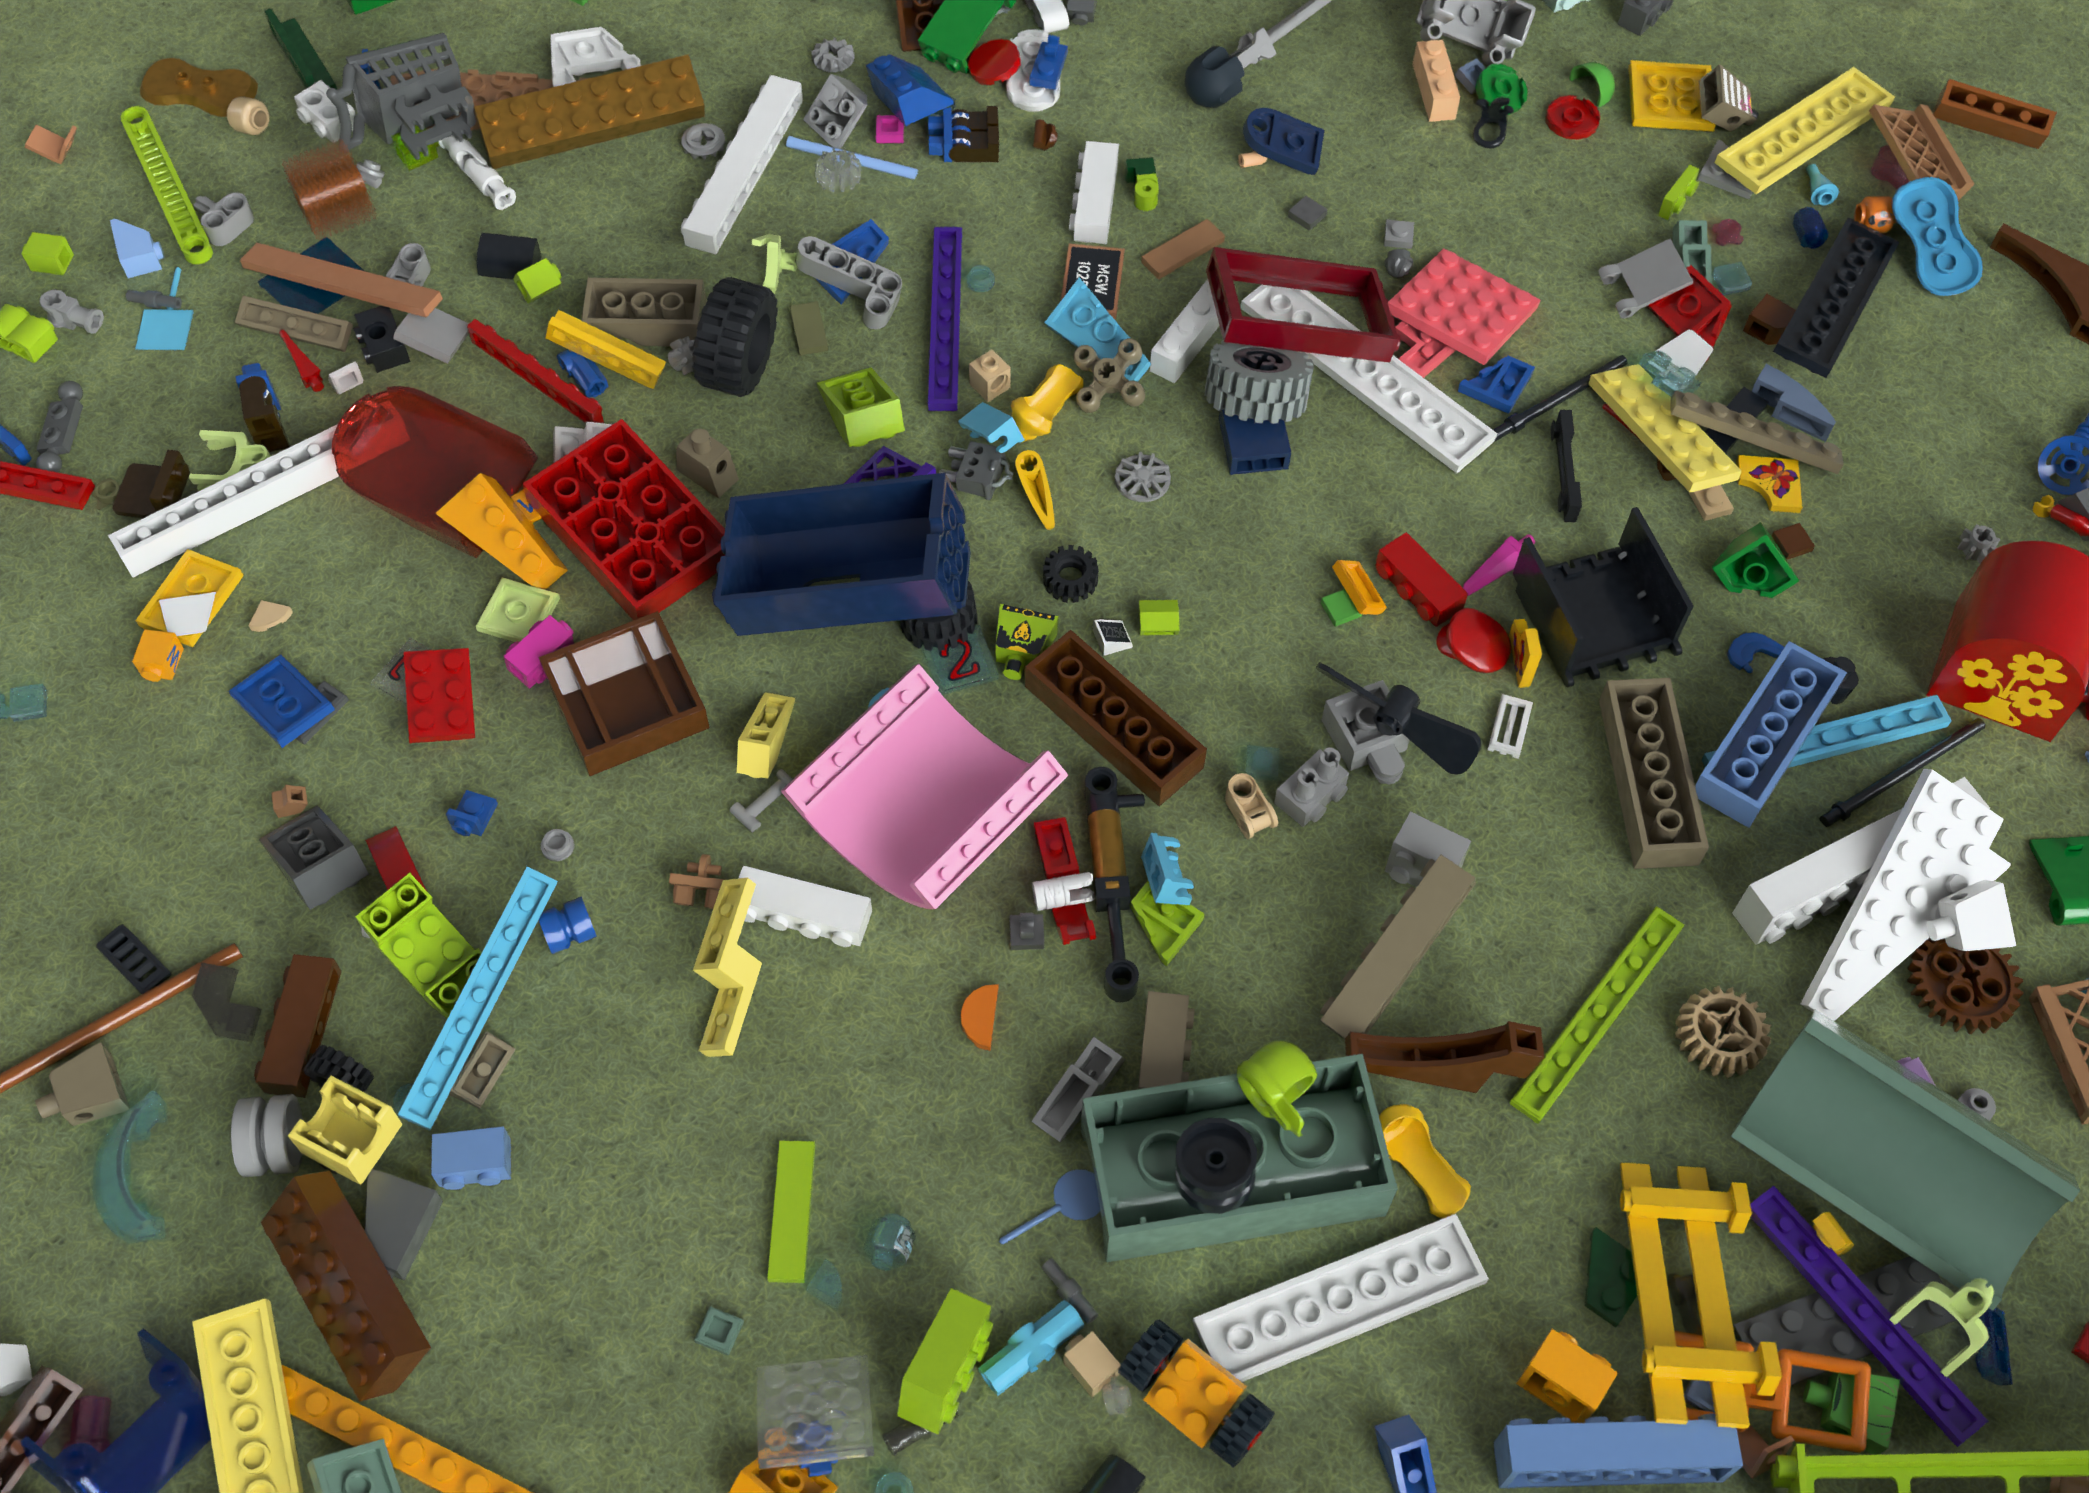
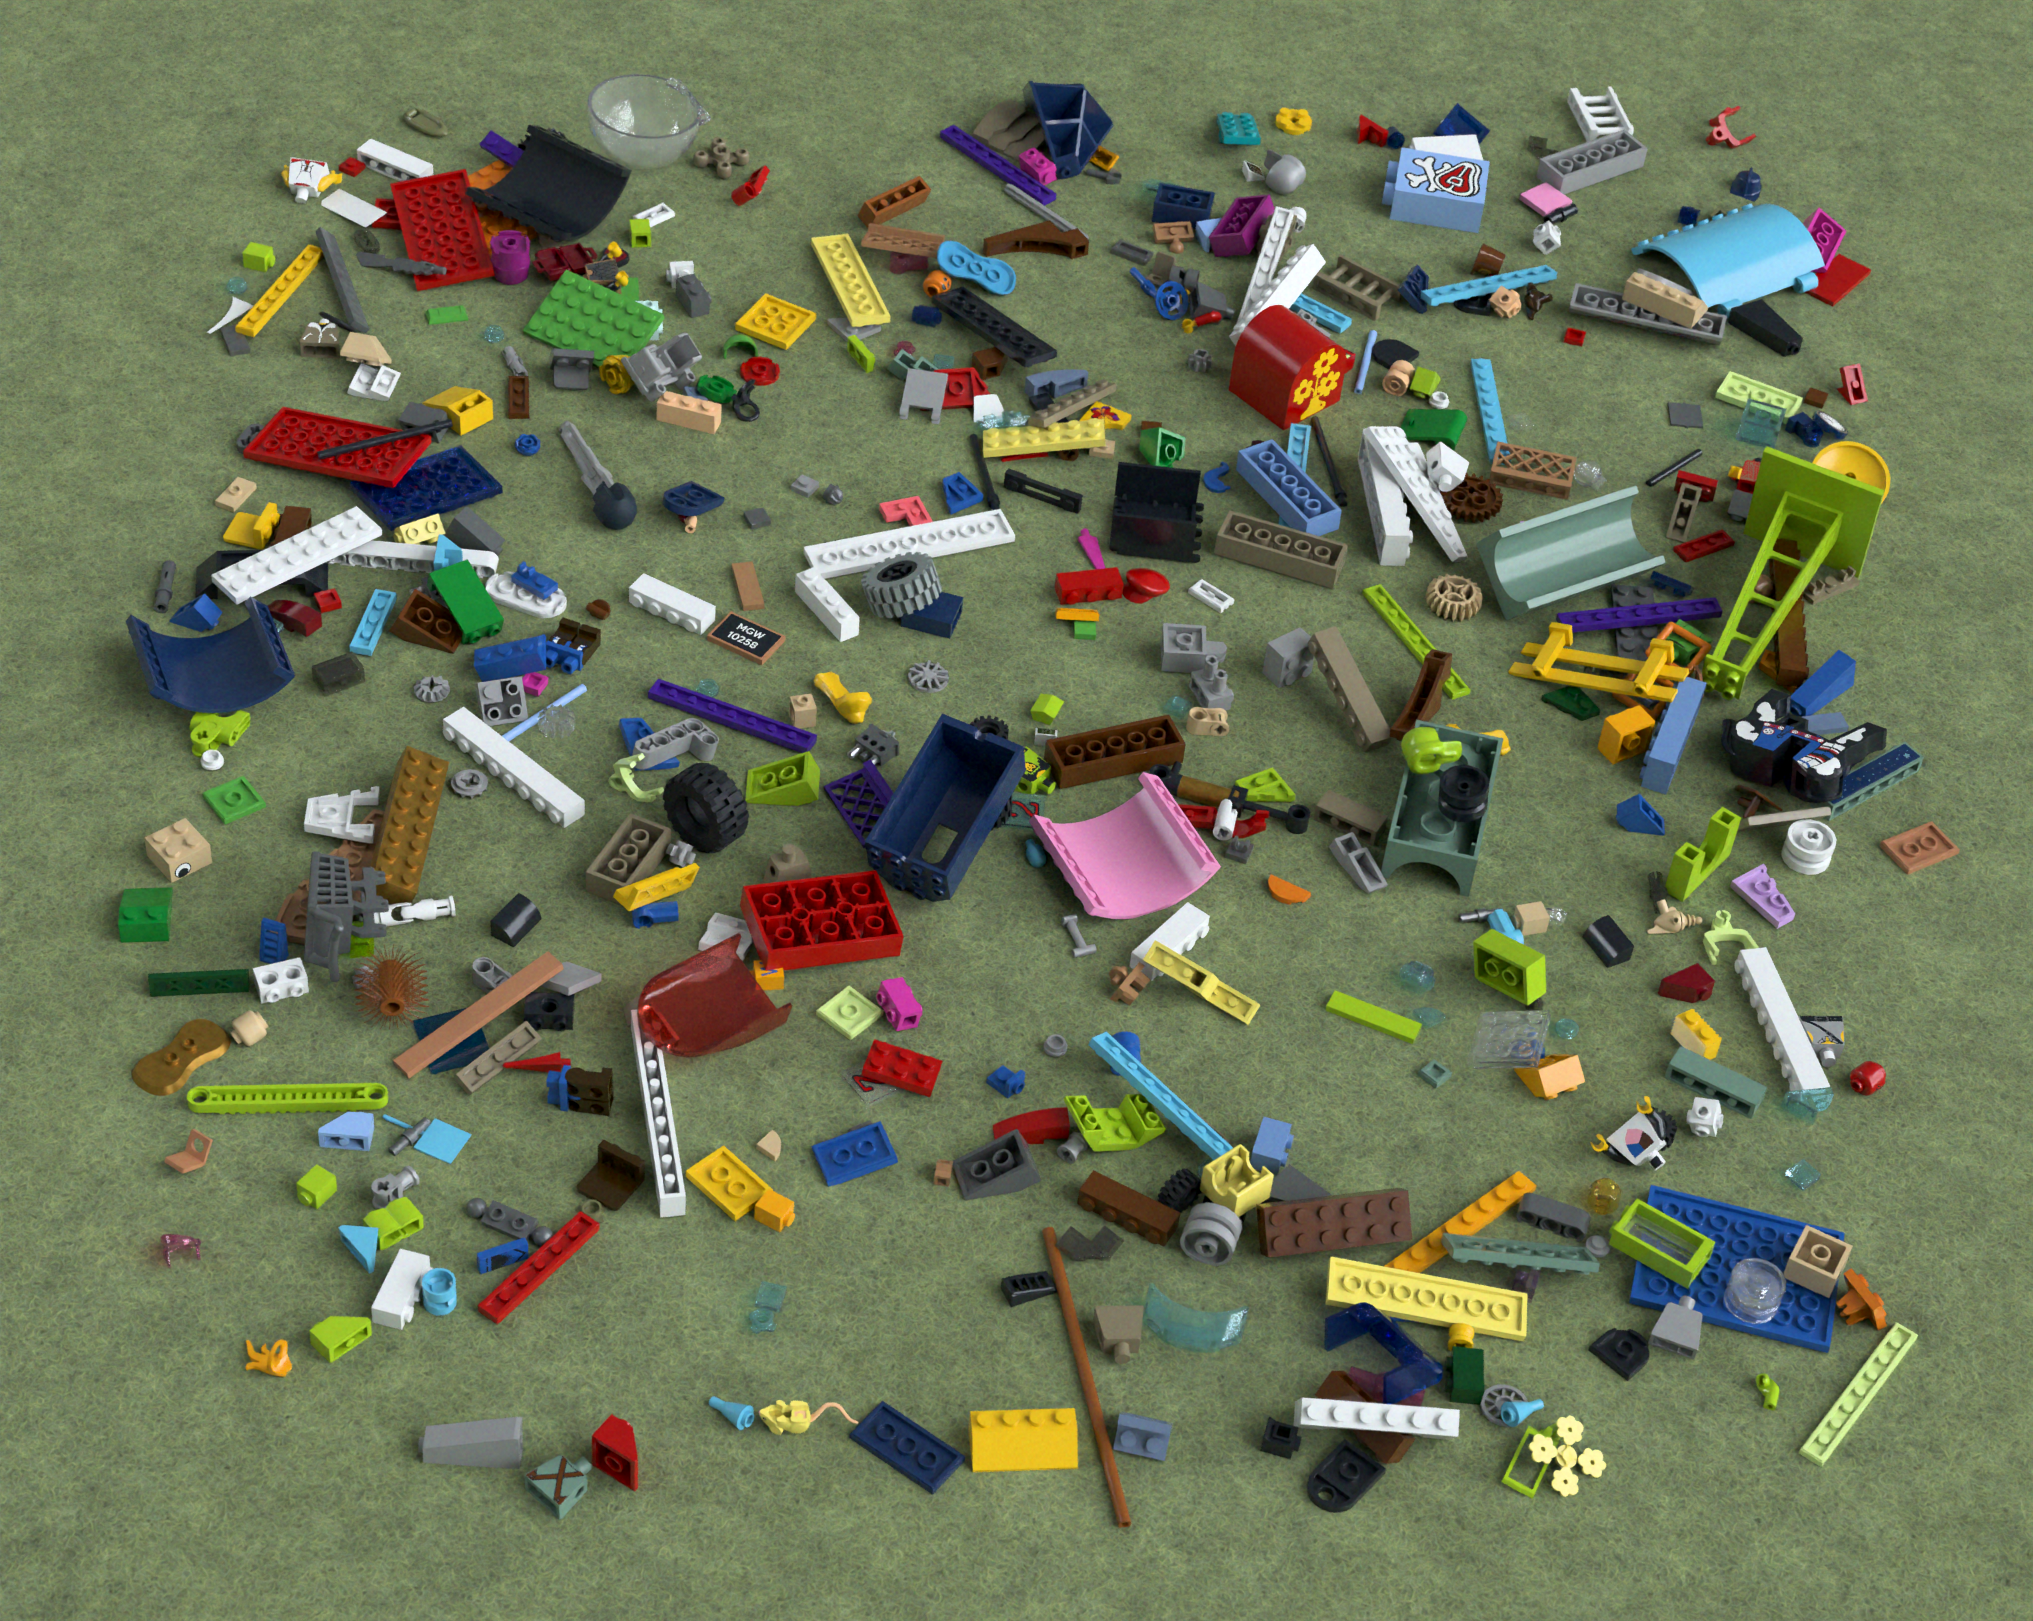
camera: 70 degrees left, 15 degrees down
(187, 613) = (748, 1183): white sticker -> none
(224, 219) = (355, 1068): light grey beam -> none
(245, 455) = (621, 1113): yellowish green piece -> none
(345, 378) = (570, 1043): white slope -> none
(501, 529) = (778, 985): light orange wedge -> none
(531, 371) = (642, 937): red plate -> none
(538, 280) = (555, 908): lime brick -> none
(624, 693) = (962, 969): reddish brown slope -> none
(764, 735) = (1032, 917): light yellow slope -> none
(992, 424) = (851, 720): medium azure hinge -> none
(994, 61) = (512, 605): red tile -> none
(1036, 486) = (906, 720): yellow piece -> none
(1074, 1197) = (1423, 893): medium blue piece -> none
(1085, 321) = (791, 651): medium azure wing -> none
(1102, 382) = (836, 636): dark tan gear -> none
(1144, 176) = (680, 578): leg -> none
(1164, 871) = (1237, 769): medium azure hinge -> none
(1195, 1393) = (1570, 878): plate -> none
(1302, 274) = (810, 560): dark red window -> none
(1341, 1299) = (1538, 809): white plate -> none
(1443, 741) = (1220, 615): black piece -> none
(1463, 306) = (889, 481): coral plate -> none
(1525, 651) = (1172, 562): yellow tile -> none
(1725, 100) = (807, 300): dark tan torso -> none
(1822, 189) = (899, 297): medium azure cone -> none
(1832, 1233) = (1593, 602): yellow slope -> none
(1962, 1307) = (1662, 566): yellowish green piece -> none

